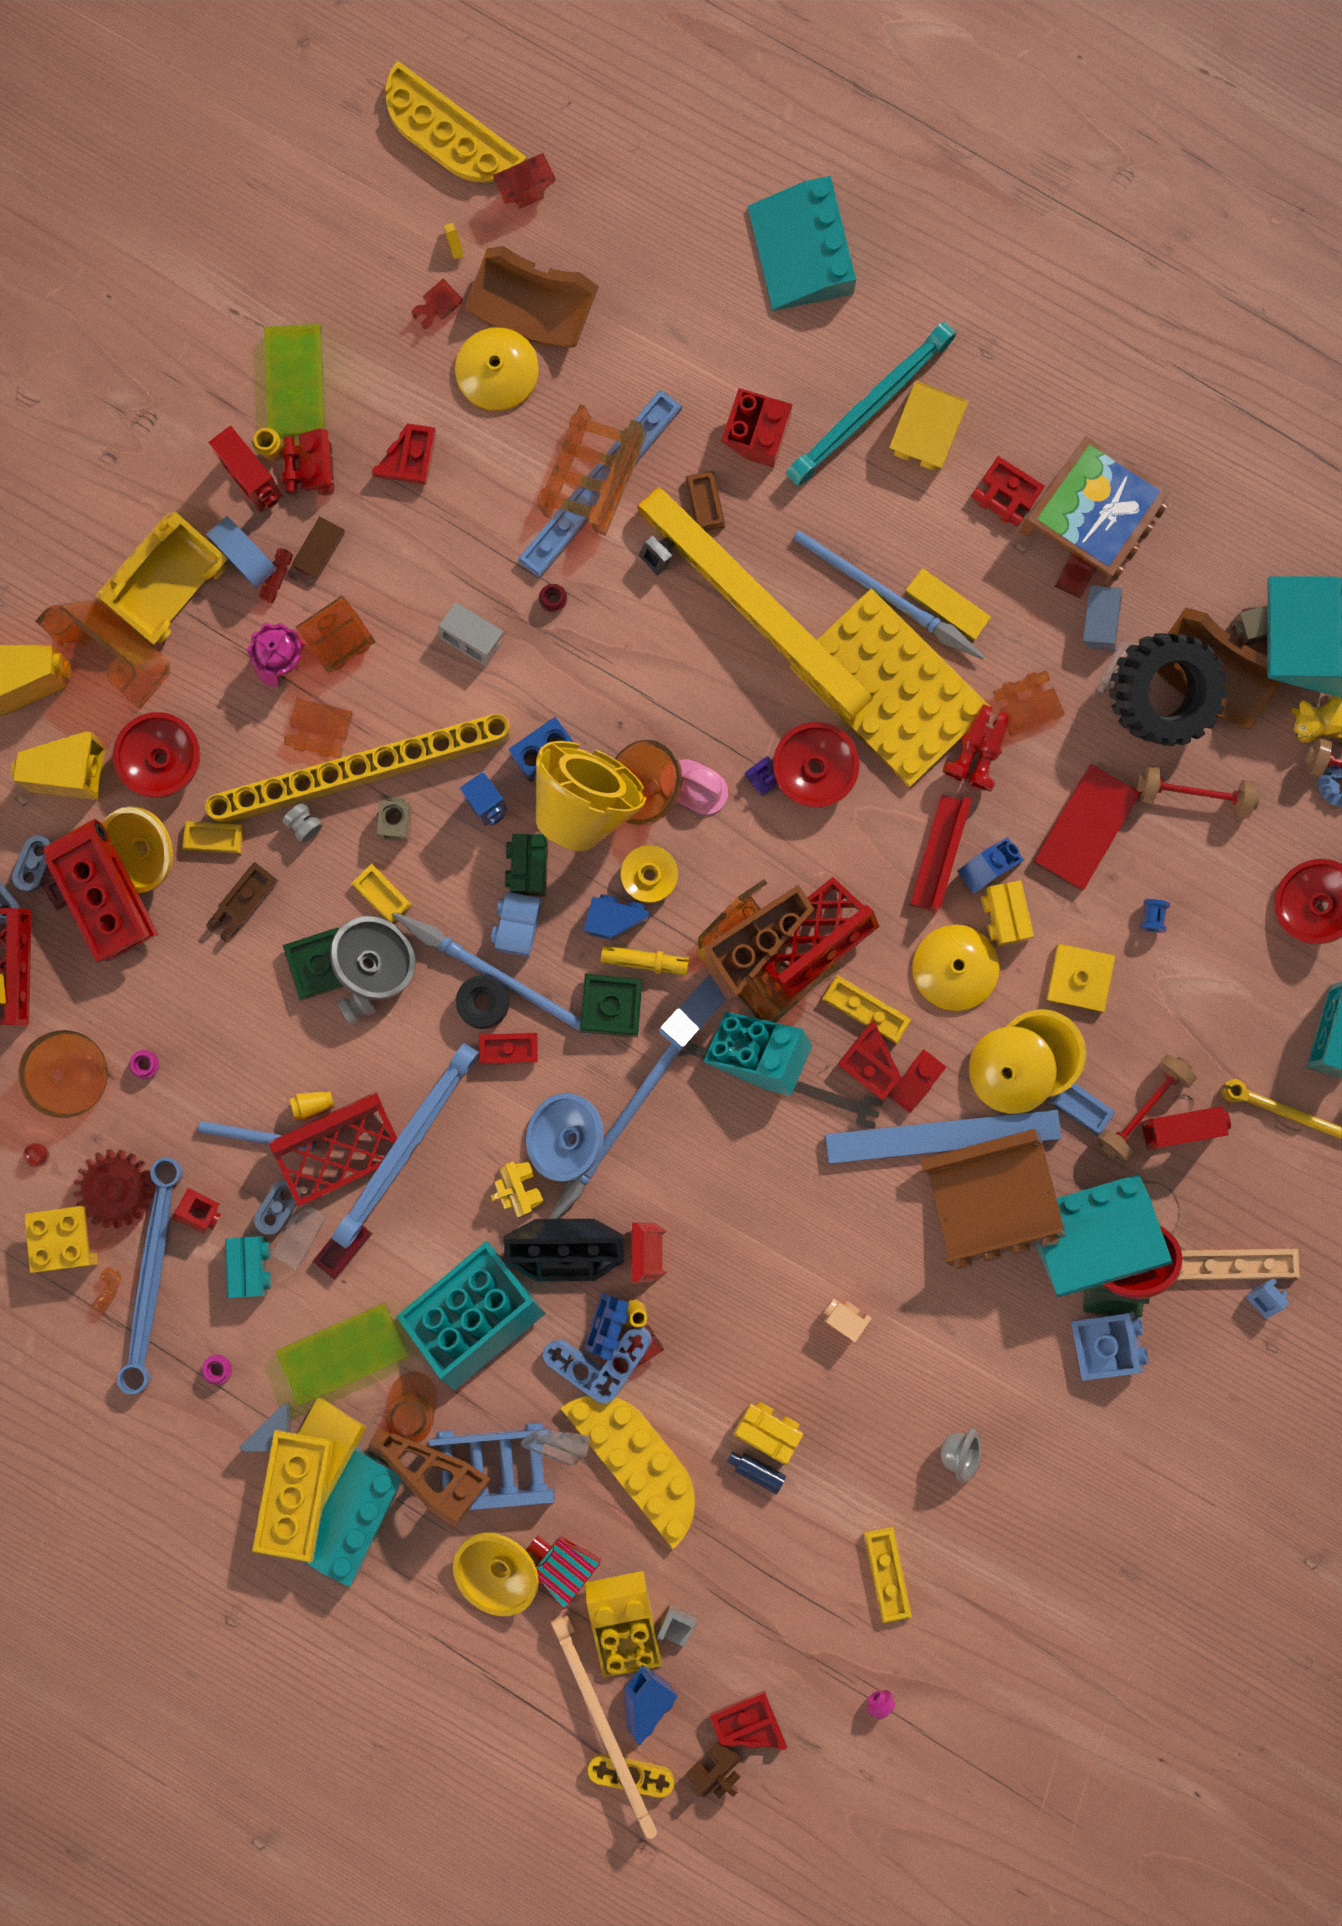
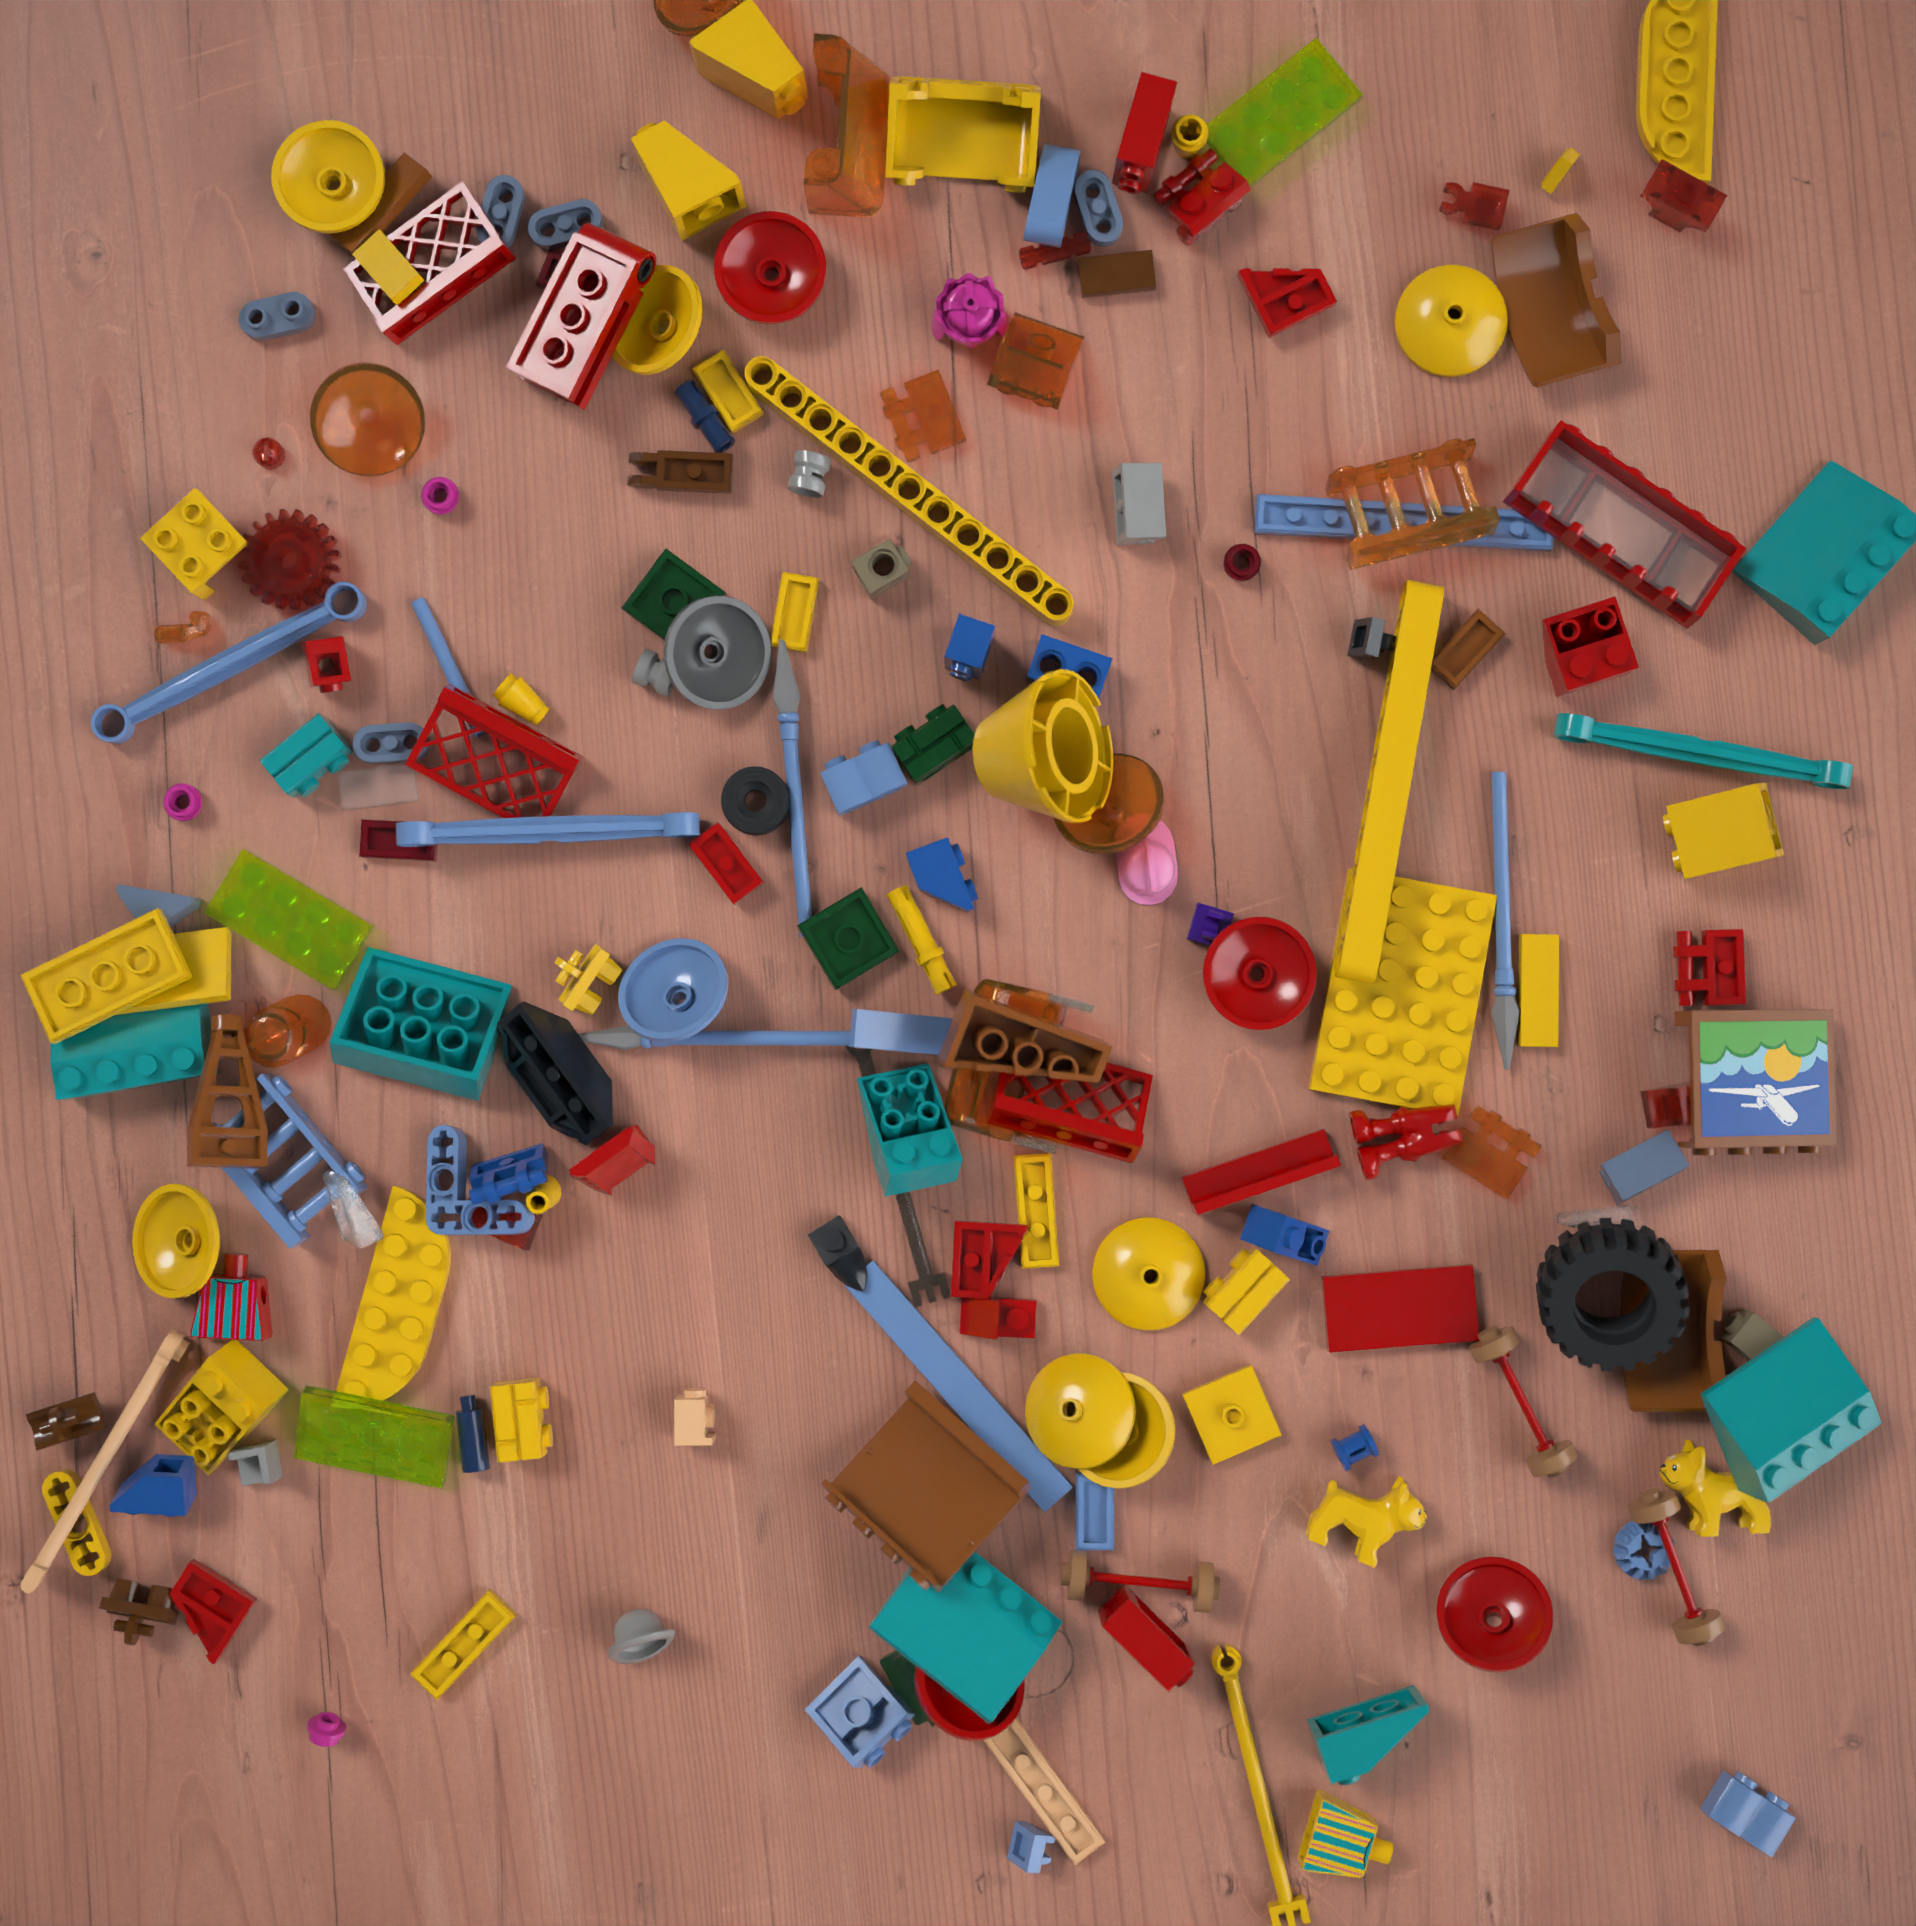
camera: 50 degrees right, 5 degrees up
(218, 862) = (704, 416): none -> dark blue pin
(271, 530) = (1099, 209): none -> sand blue plate
(560, 1733) = (66, 1421): none -> reddish brown hips
(649, 859) = (1020, 859): yellow dish -> none
(698, 352) = (1625, 524): none -> window
(713, 1536) = (373, 1436): none -> clear neon green plate
(807, 1151) = (841, 1253): none -> black plate
(1205, 938) = (1367, 1518): none -> yellow animal

